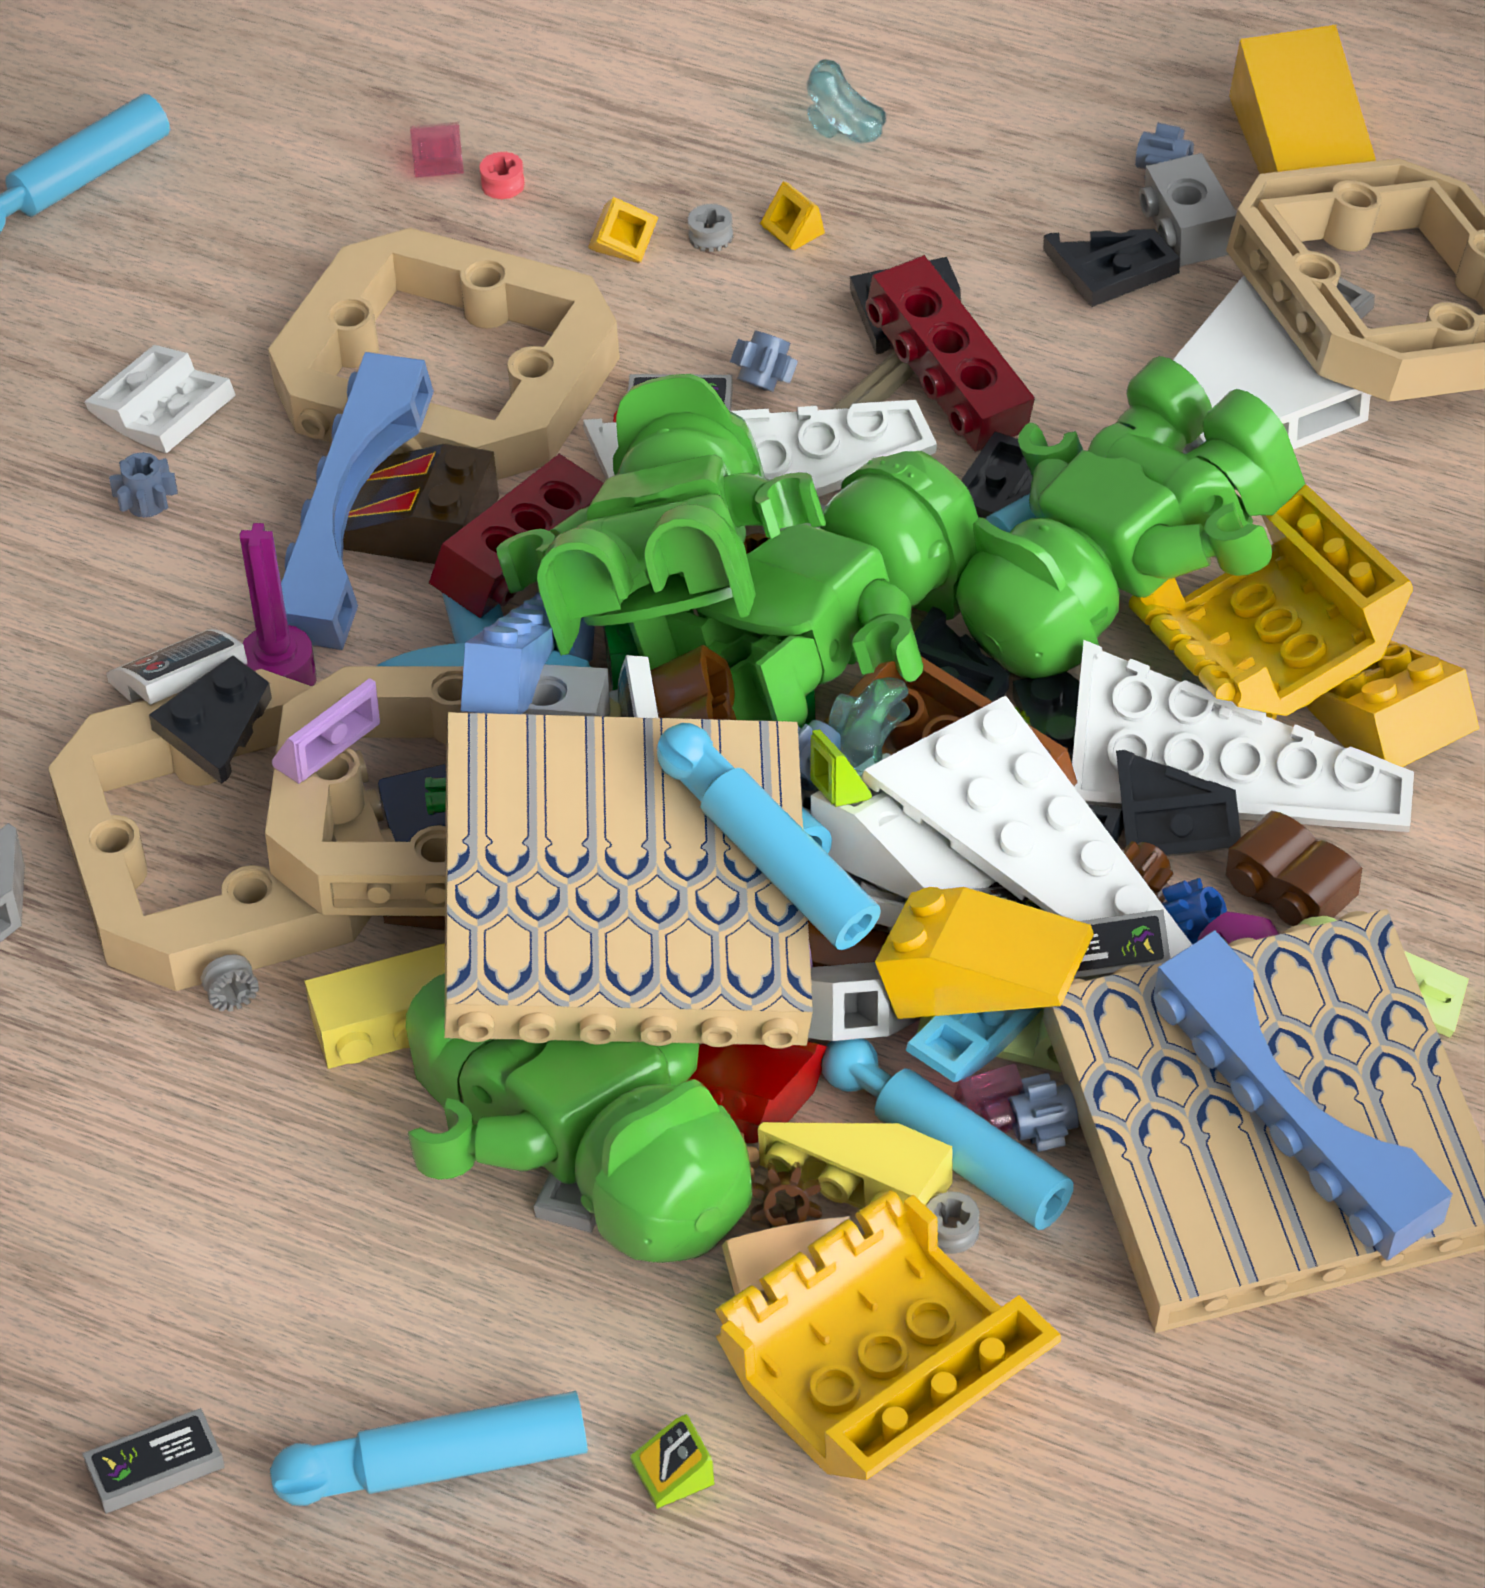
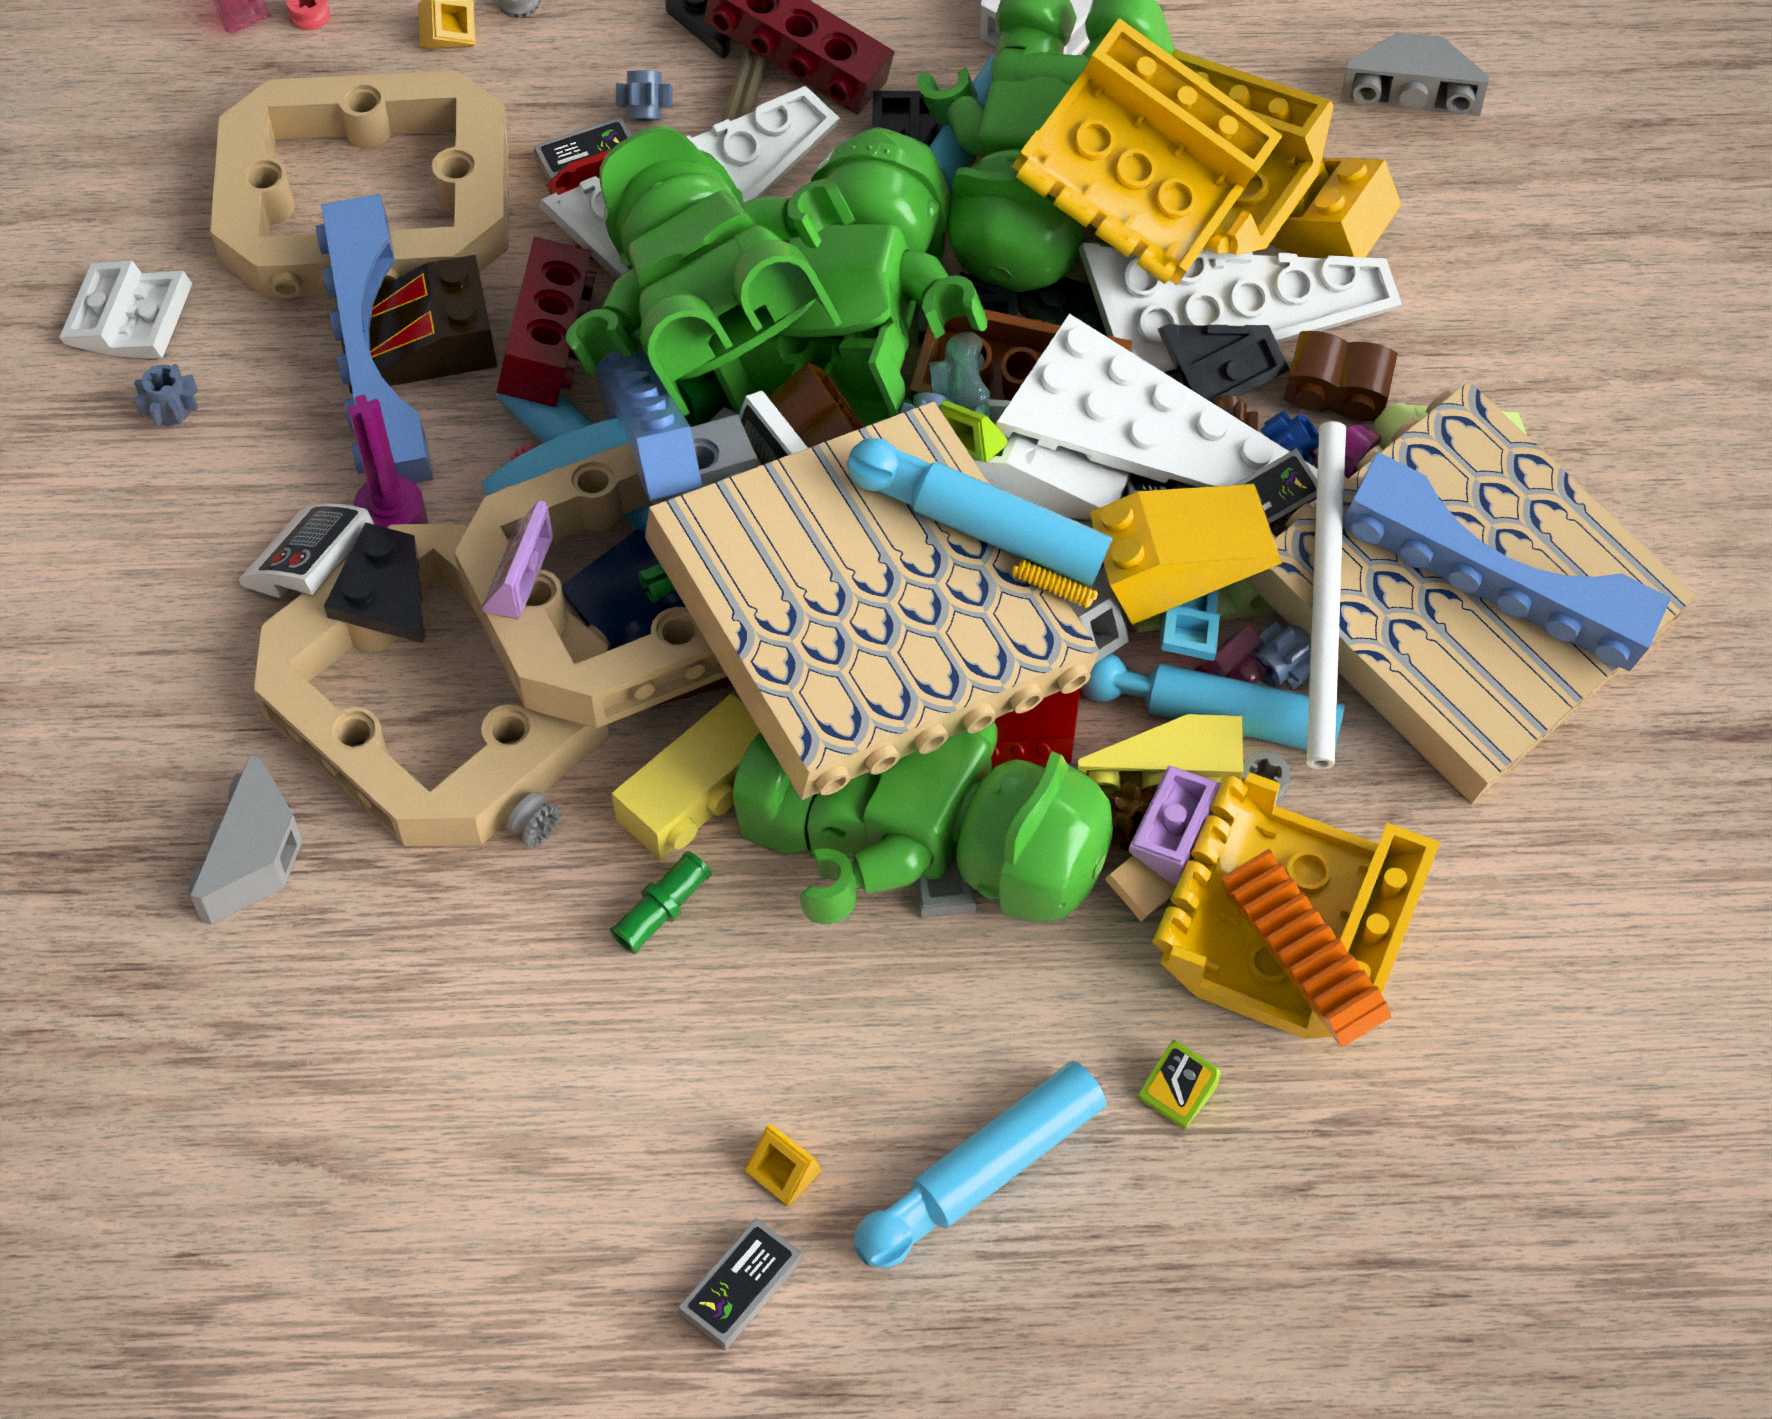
camera: 30 degrees left, 10 degrees up
(257, 1375) = (782, 1165): none -> yellow slope
(297, 1101) = (660, 902): none -> green pin
(802, 931) = (1054, 583): none -> yellow piece
(811, 1211) = (1173, 822): none -> lavender slope
(852, 1372) = (1306, 948): none -> orange gear
(1089, 1057) = (1326, 597): none -> white piece
(1167, 570) = (1146, 153): none -> yellow slope

